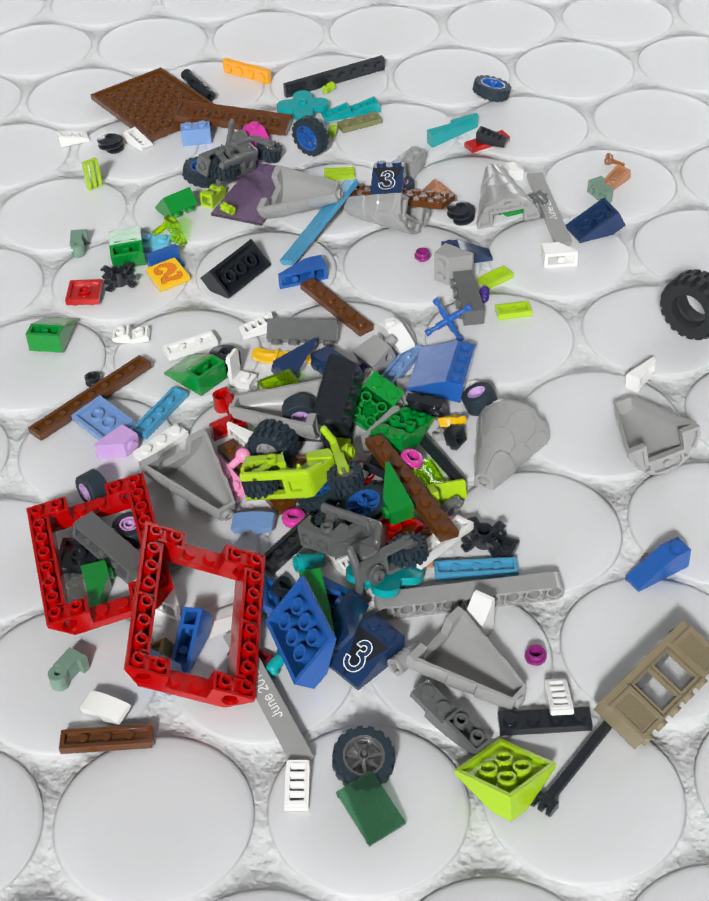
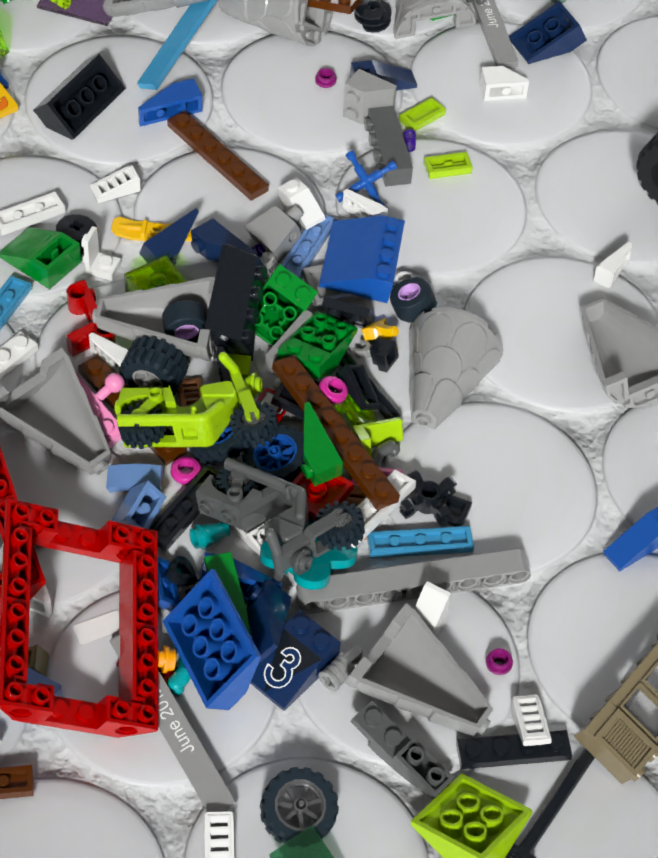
camera: 10 degrees left, 10 degrees up
(191, 636) = (69, 645): blue slope -> none
(257, 538) = (140, 505): none -> medium blue brick
(265, 648) = (167, 659): none -> light orange plate
(302, 330) = (176, 195): dark grey brick -> none
(433, 457) = (359, 386): none -> black slope
(443, 335) = (362, 206): none -> white slope

